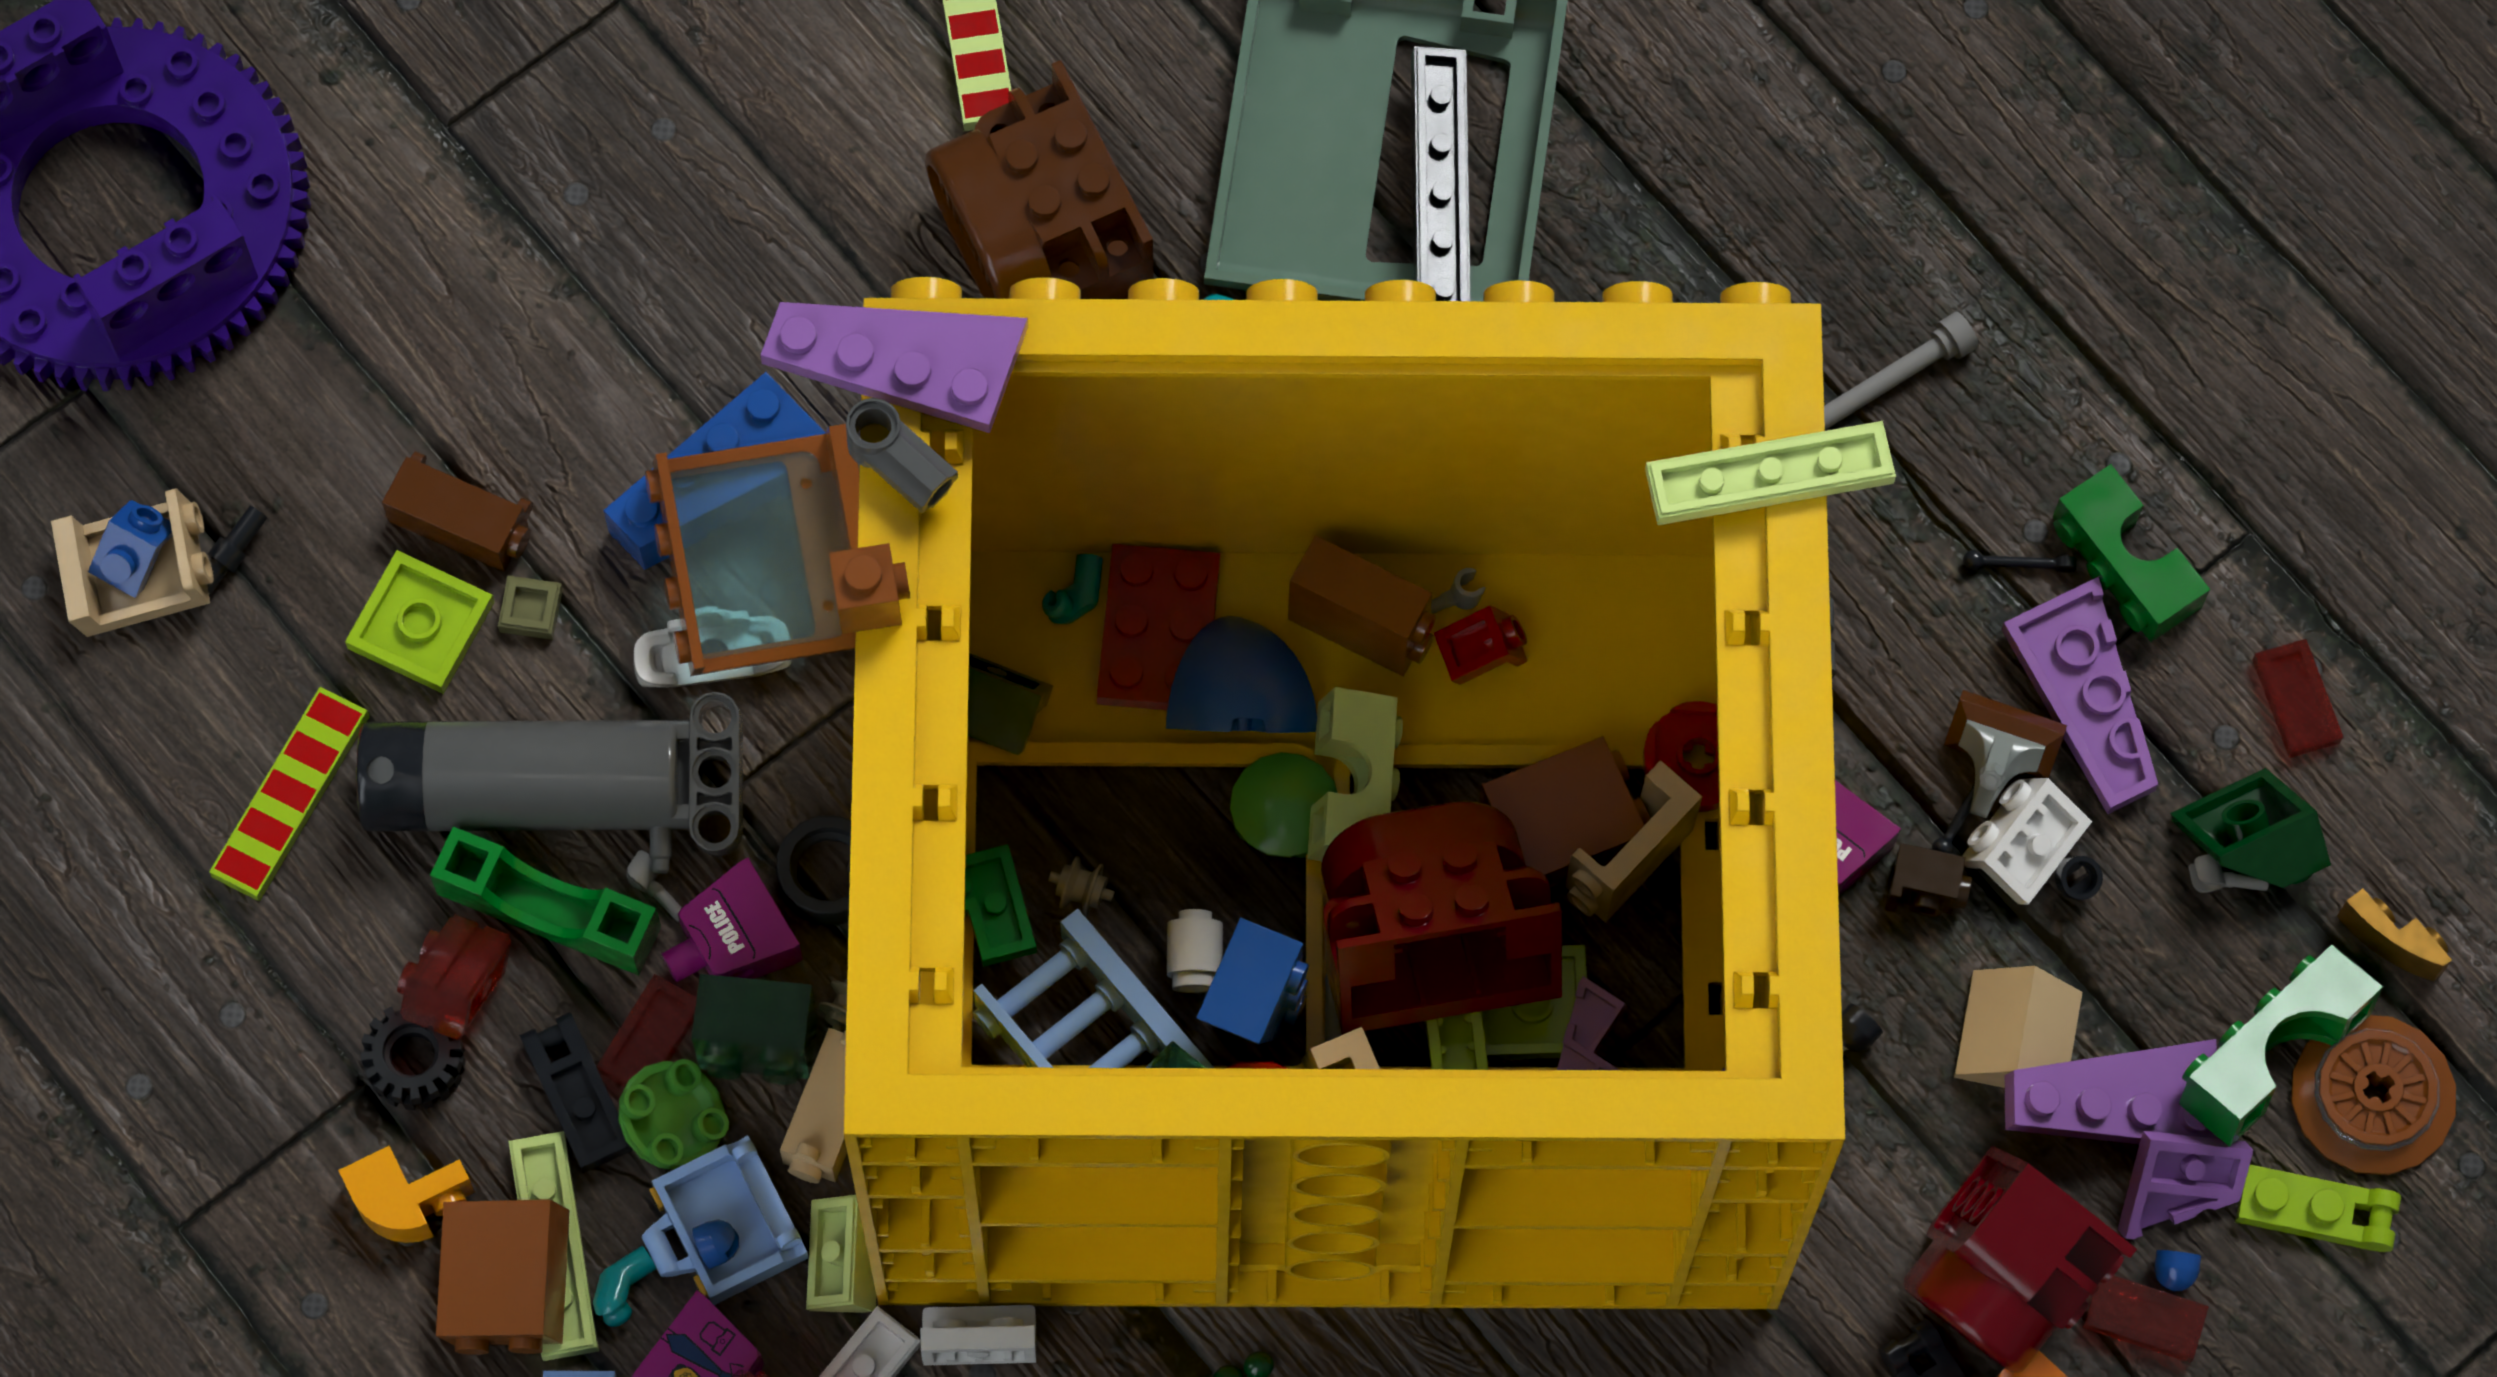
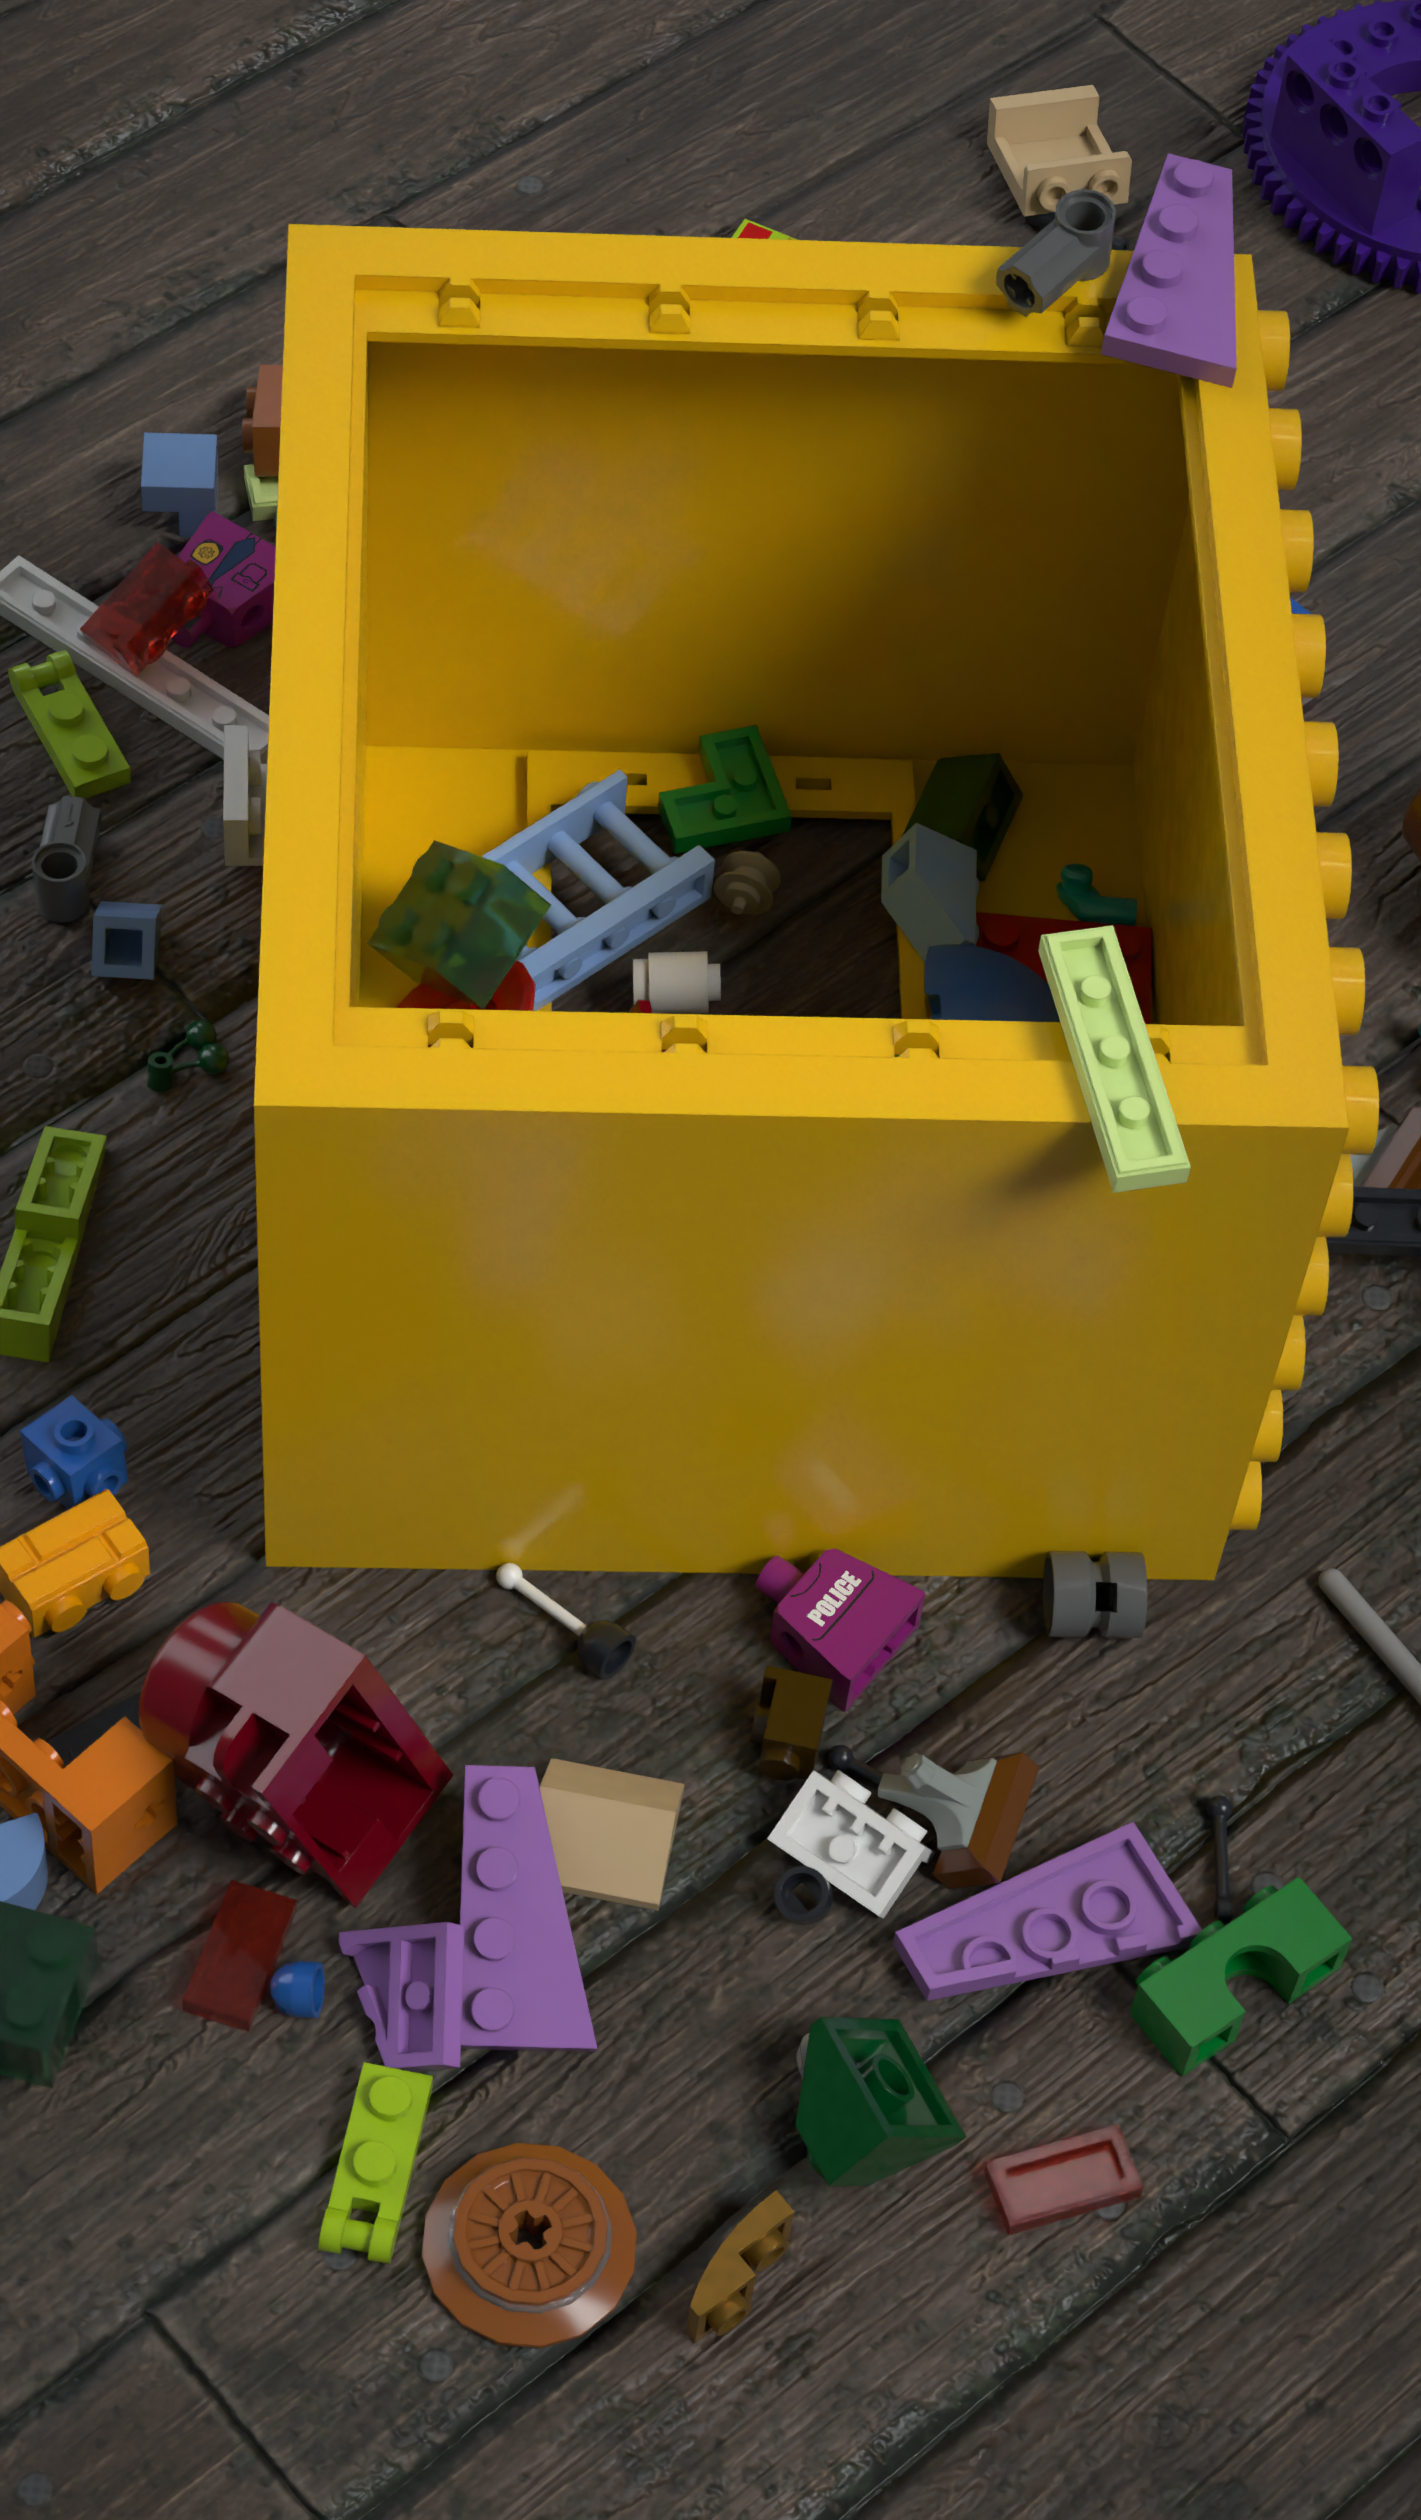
camera: 85 degrees right, 15 degrees down
(130, 547) = (1070, 133): blue bracket -> none
(868, 588) = (899, 221): dark orange brick -> none
(1094, 725) = (931, 889): none -> slope
(1257, 984) = (605, 954): blue wedge -> none
(2320, 1004) = (530, 2032): arch -> none

